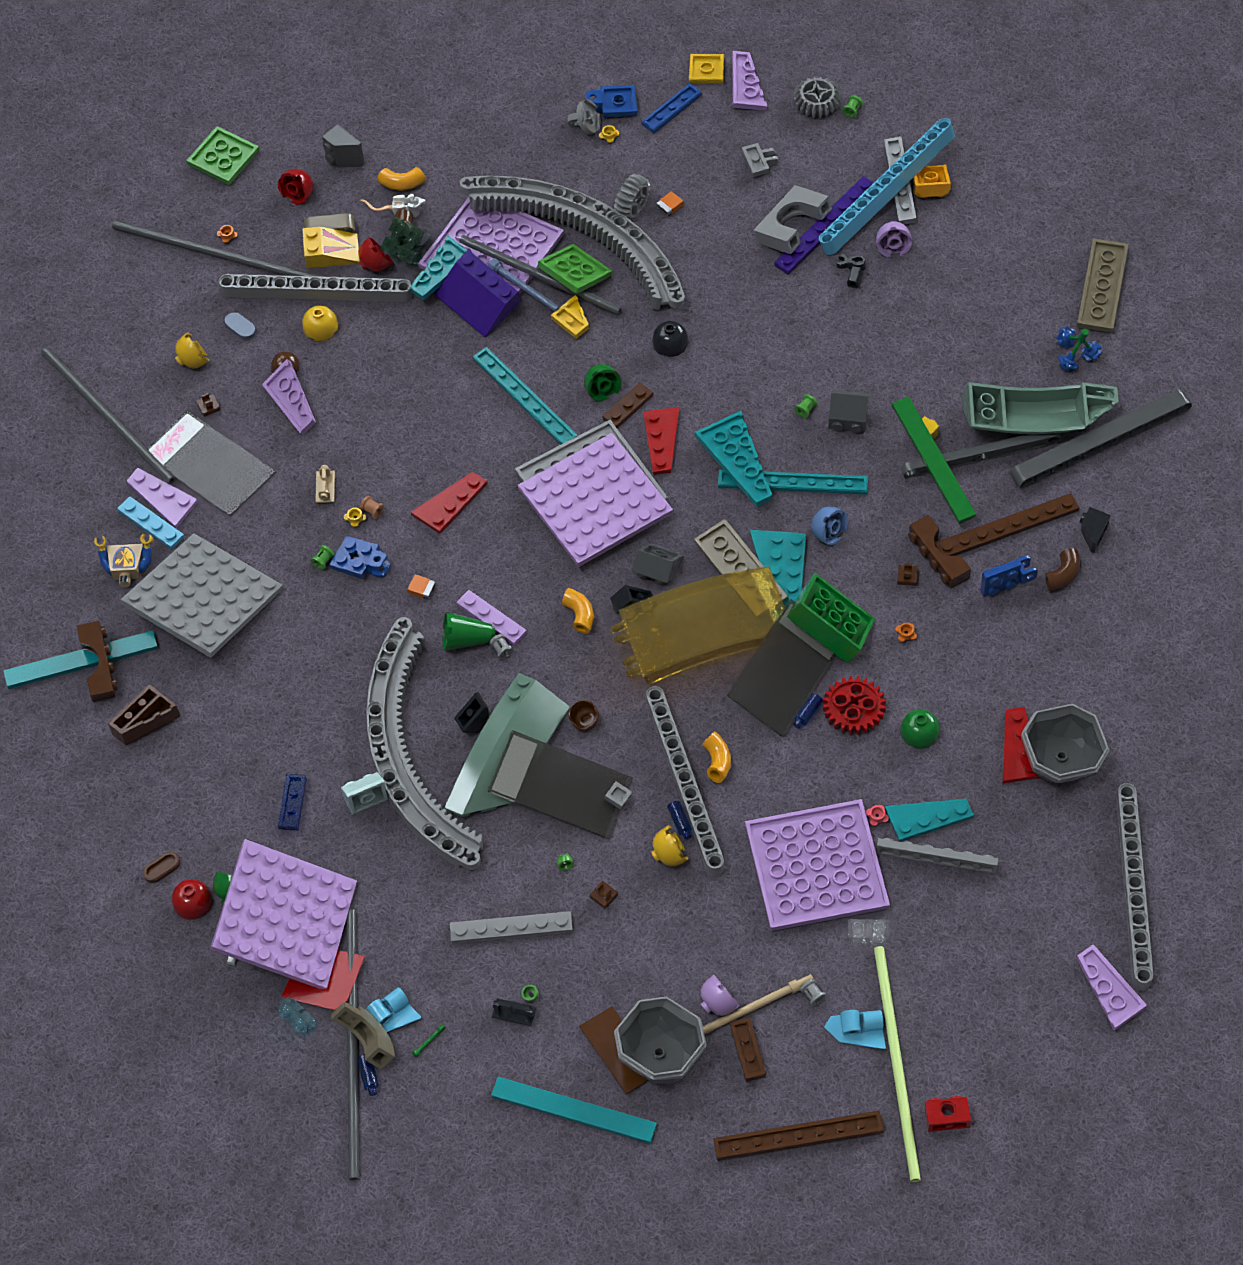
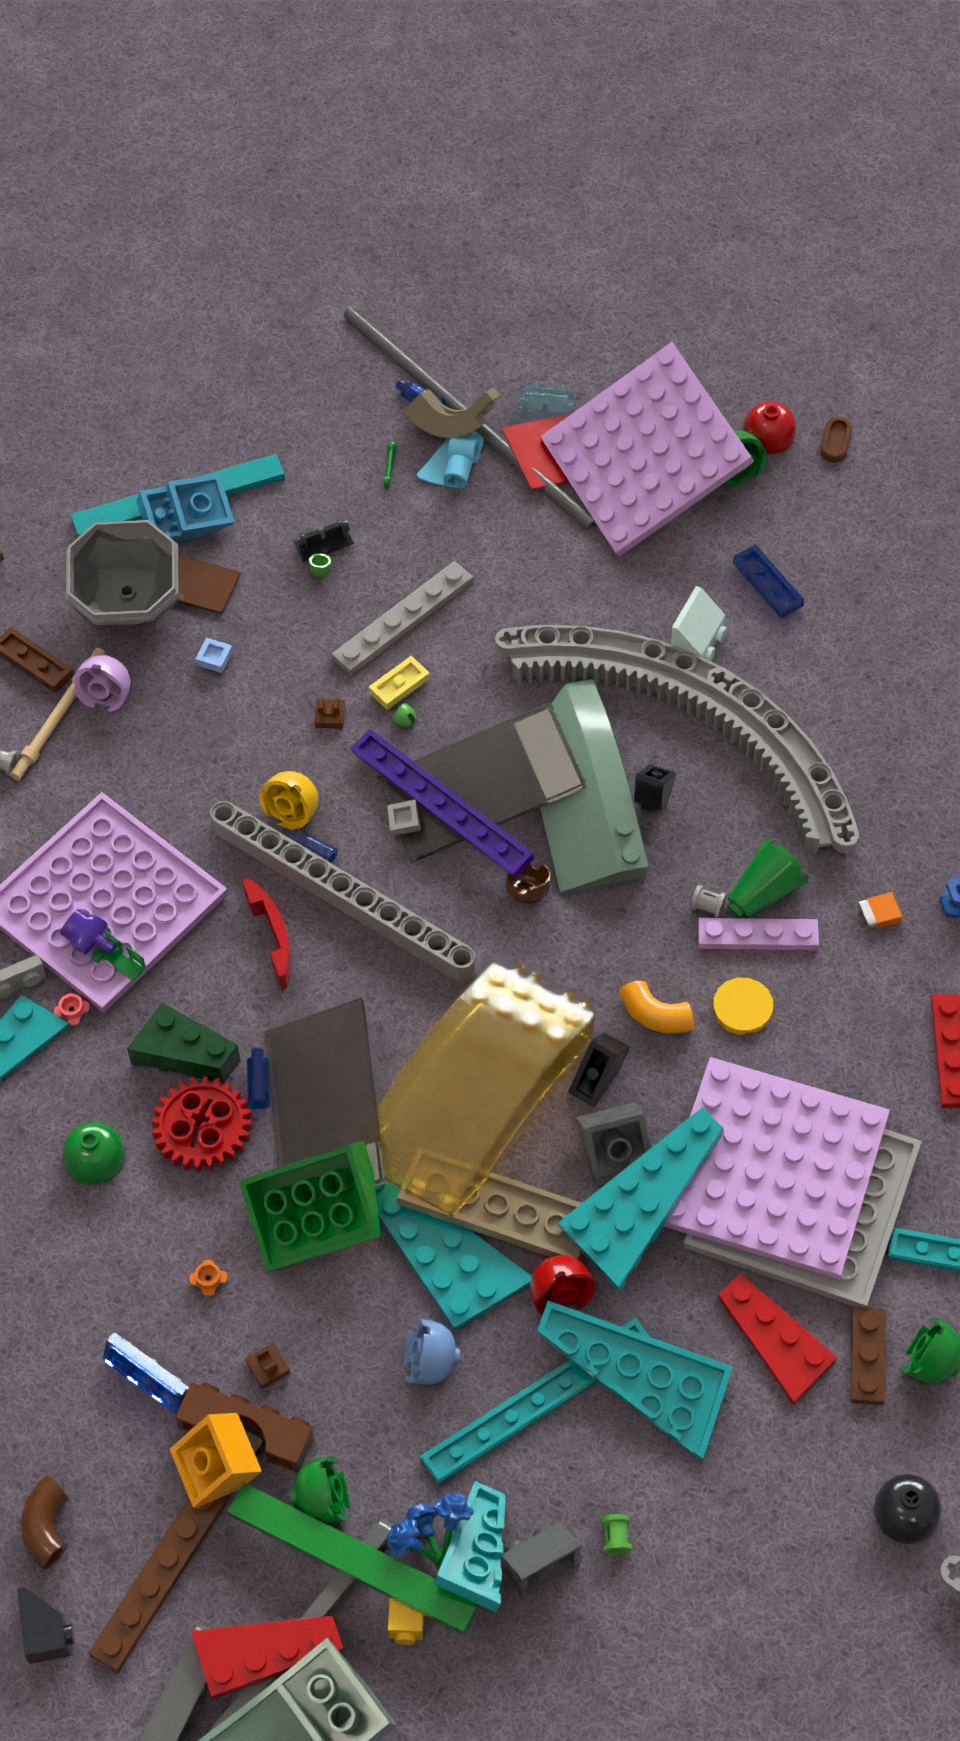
camera: 140 degrees right, 0 degrees up
(533, 588) = (743, 1006): none -> yellow tile
(550, 883) = (399, 682): none -> light yellow plate
(581, 1086) = (187, 507): none -> dark azure slope
(592, 785) = (443, 803): none -> dark purple plate
(639, 976) = (214, 655): none -> light blue plate
(682, 516) = (635, 1205): none -> teal wing
(720, 757) = (322, 947): light orange cylinder -> none
(742, 515) = (561, 1281): none -> red cylinder
(747, 763) = (261, 904): none -> red slope
(833, 818) = (121, 962): none -> green piece
(834, 748) = (183, 1046): none -> dark green wedge
(841, 839) = (86, 931): none -> dark purple piece
(880, 424) = (476, 1550): none -> teal wing
(904, 444) = (420, 1518): none -> blue plant
(926, 499) = (320, 1487): none -> green cylinder
(965, 537) = (215, 1458): none -> light orange slope
(968, 604) = (144, 1372): none -> clear blue plate
(1007, 576) = (114, 1442): blue plate -> none
(1010, 451) = (257, 1652): none -> red wing

